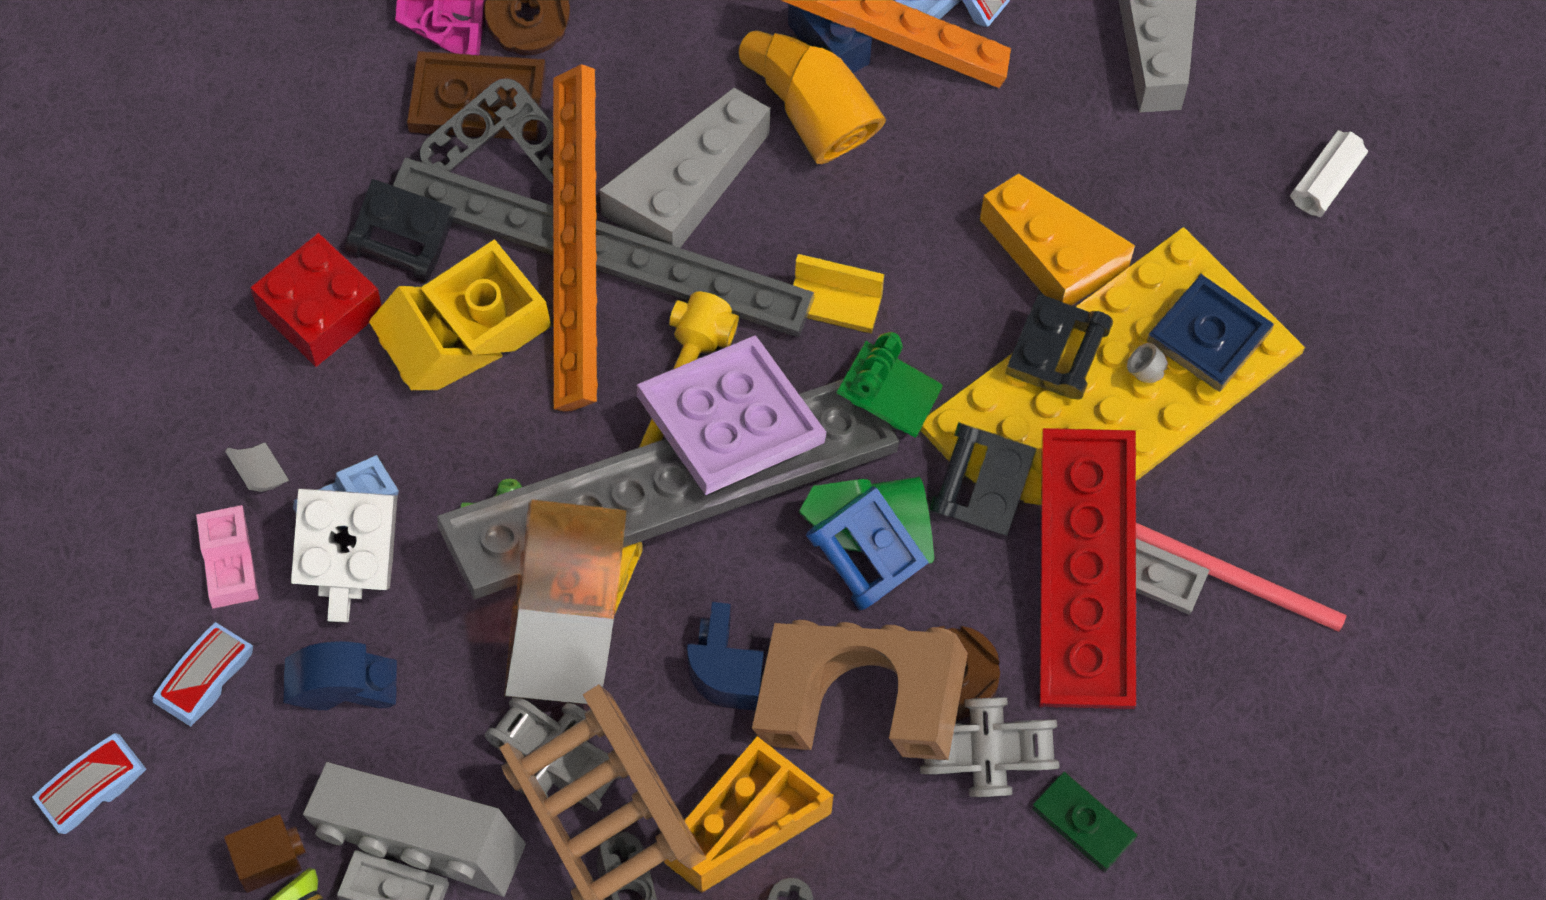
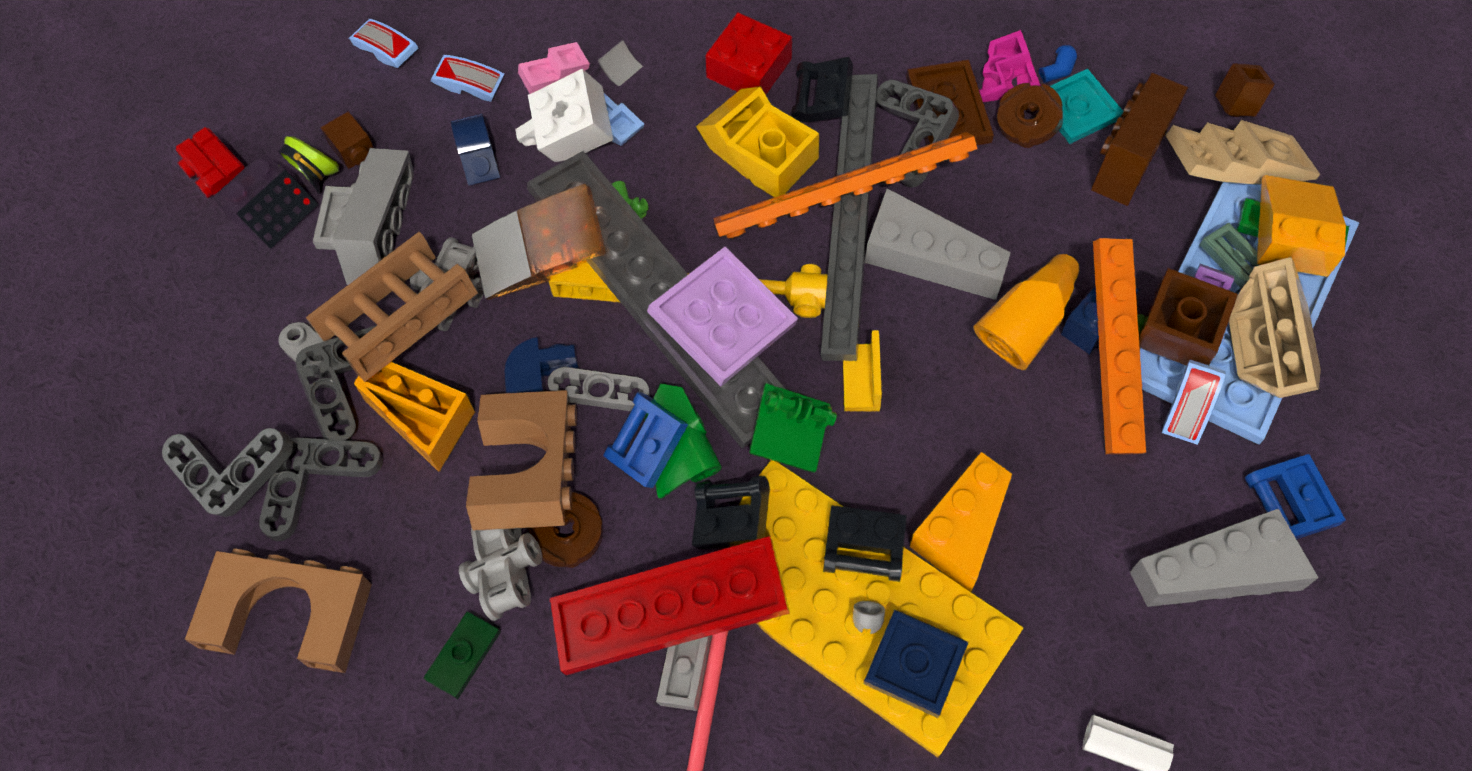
camera: 80 degrees right, 0 degrees up
(769, 563) = (625, 383): none -> light grey beam

